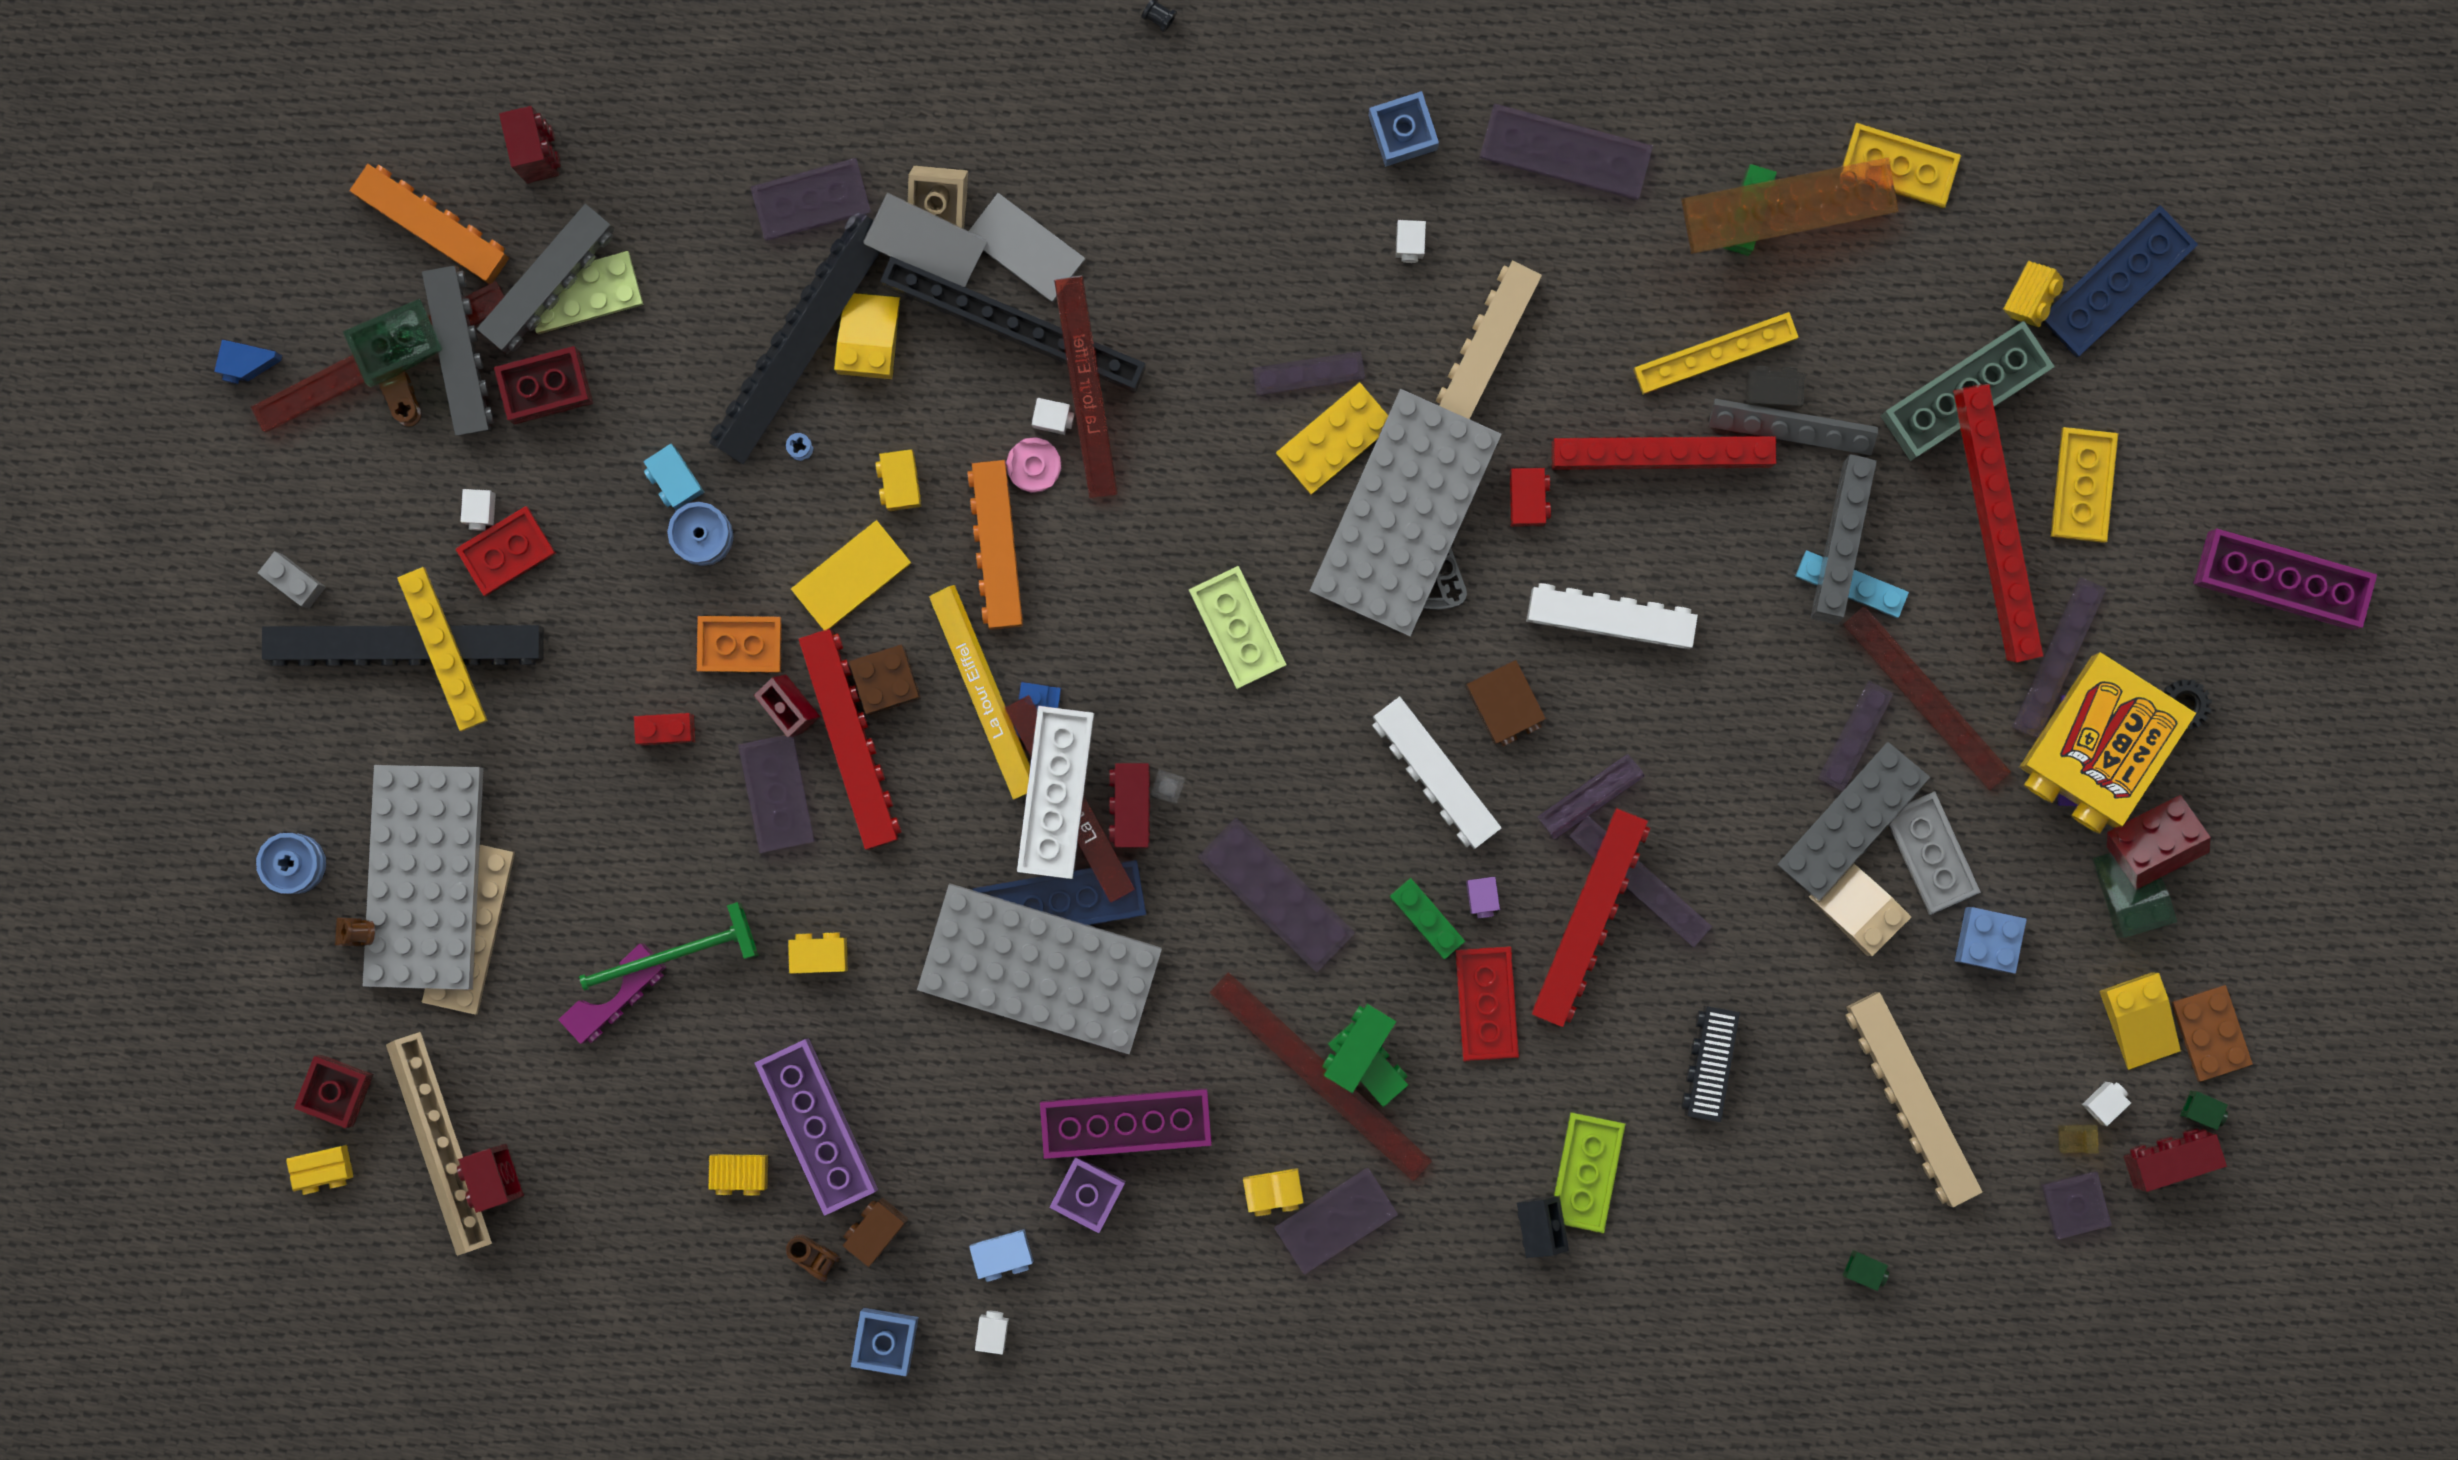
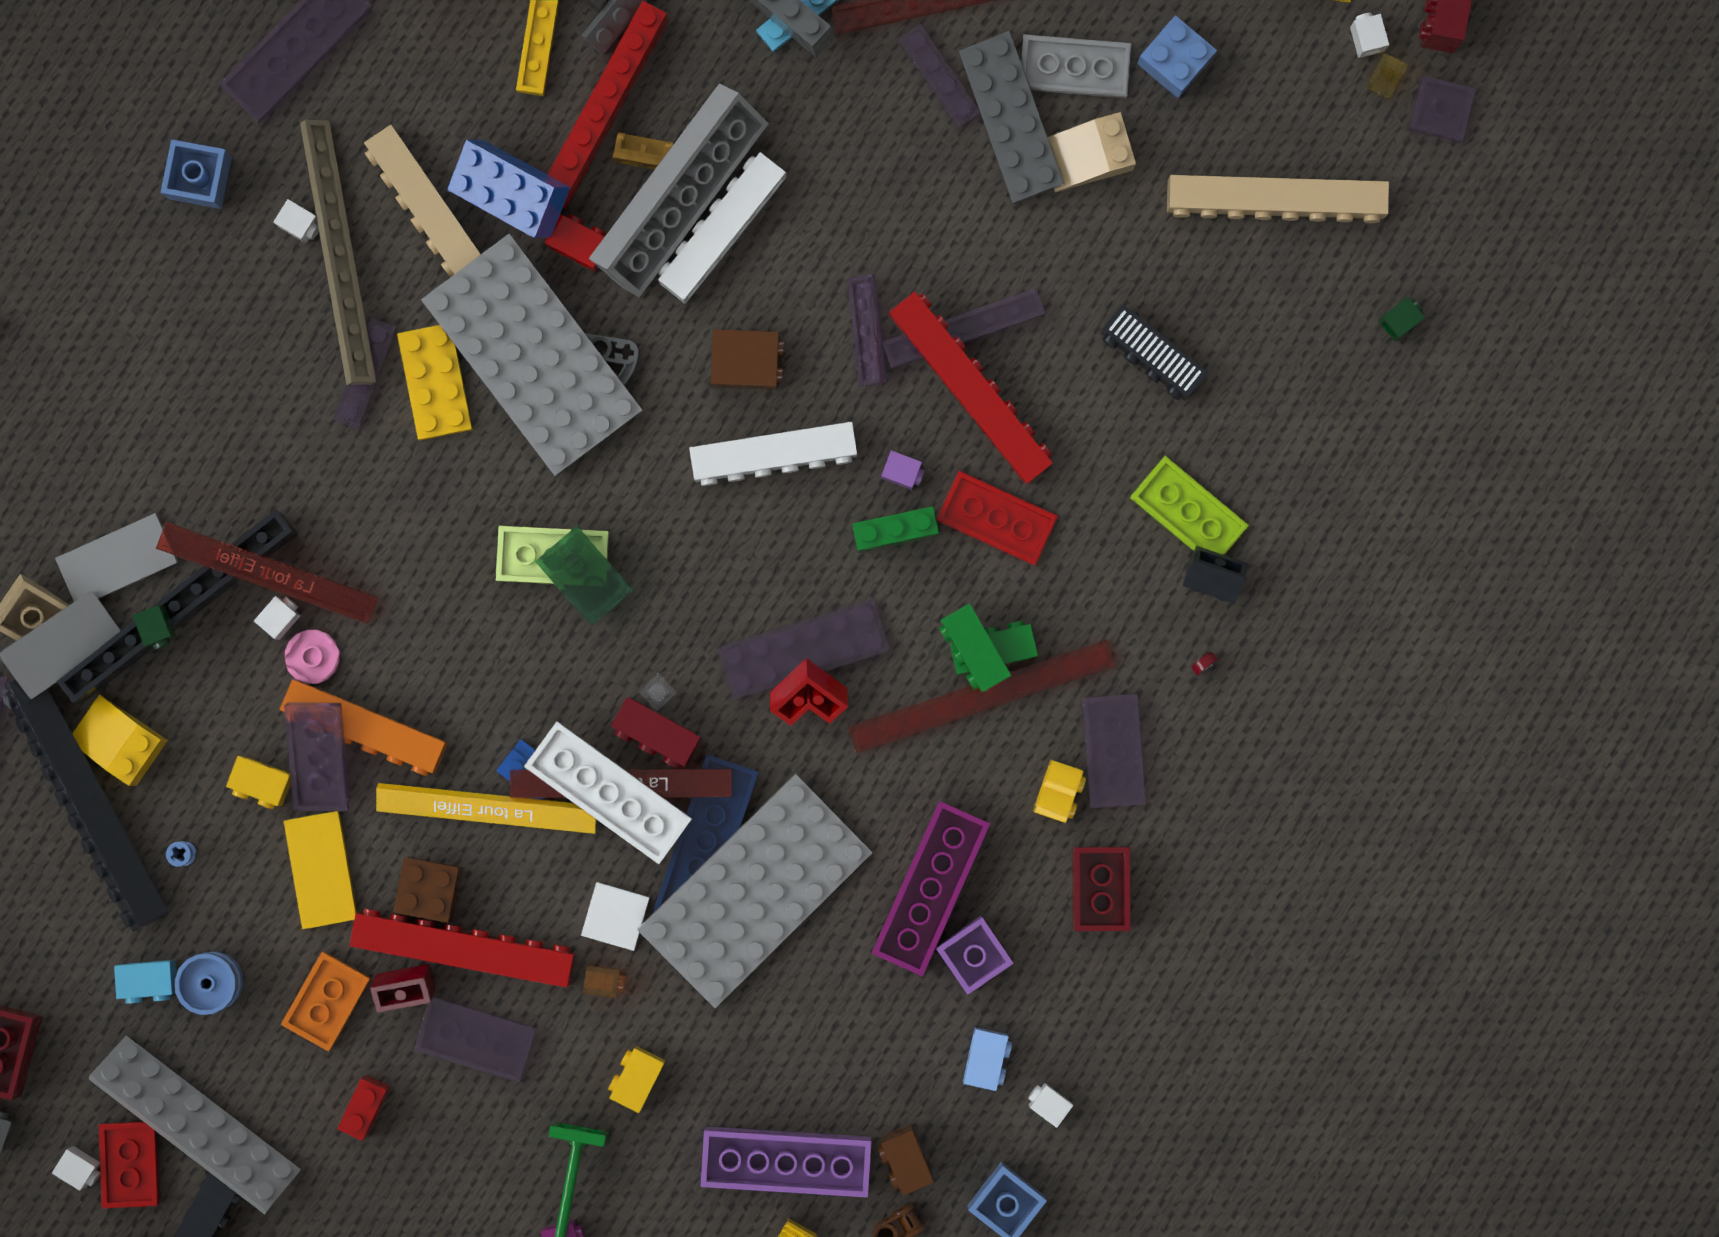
camera: 65 degrees left, 0 degrees up
(571, 589) = (194, 1124): none -> light grey plate
(888, 878) = (603, 981): none -> clear orange brick
(948, 519) = (317, 756): none -> clear purple plate
(950, 857) = (615, 916): none -> white tile
(984, 317) = (155, 627): none -> dark green brick
(1207, 1275) = (1101, 888): none -> dark red brick
(1235, 666) = (584, 575): none -> clear green slope
(1241, 917) = (808, 689): none -> red brick
(1402, 291) = (337, 252): none -> dark tan plate
(1458, 1259) = (1204, 663): none -> dark red tile
(1541, 411) = (508, 188): none -> brick
(1623, 562) = (679, 190): none -> light grey brick
(1641, 510) = (640, 151): none -> pearl gold hinge

